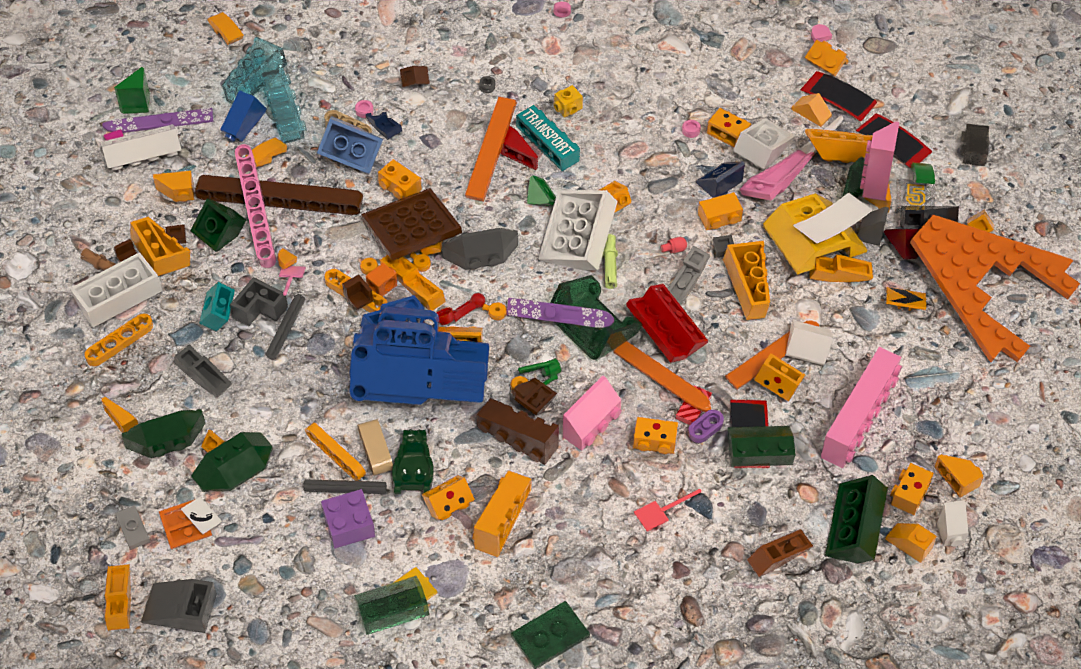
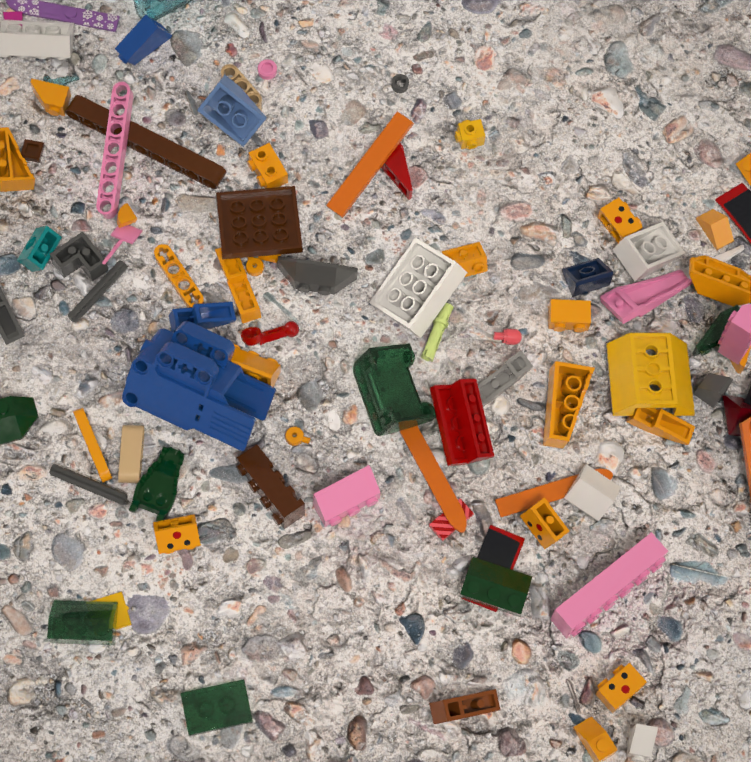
camera: 15 degrees right, 15 degrees up
(217, 224) = (74, 155): dark green slope -> none
(264, 151) = (147, 88): light orange slope -> none
(283, 106) = (186, 42): clear light blue wedge -> none
(348, 518) = (76, 521): medium lavender brick -> none
(357, 292) = (176, 282): reddish brown panel -> none
(368, 265) = (203, 257): light orange piece -> none
(382, 279) = (207, 274): orange brick -> none
(385, 126) = (280, 96): dark blue slope -> none
(414, 75) = (330, 50): reddish brown panel -> none
(497, 311) = (304, 342): light orange piece -> none
(501, 513) = (220, 568): light orange wedge -> none
(533, 395) = (300, 455): reddish brown slope -> none
(539, 192) = (401, 228): green slope -> none
(548, 137) = (433, 168): teal brick -> none
(548, 368) = (328, 428): green plant -> none
(559, 313) = (359, 376): medium lavender piece -> none
(562, 9) = (511, 20): bright pink tile -> none
(653, 515) = (363, 620): coral piece -> none
(655, 435) = (399, 540): light orange brick -> none
(691, 128) = (583, 207): bright pink tile -> none
(704, 427) = (451, 546): medium lavender plate -> none
(720, 244) = (556, 352): dark grey plate -> none
(834, 219) = (671, 372): white sticker -> none
(857, 520) = (552, 700): dark green slope -> none
(906, 298) = (710, 480): light orange piece -> none
(959, 474) = (674, 690): light orange slope -> none

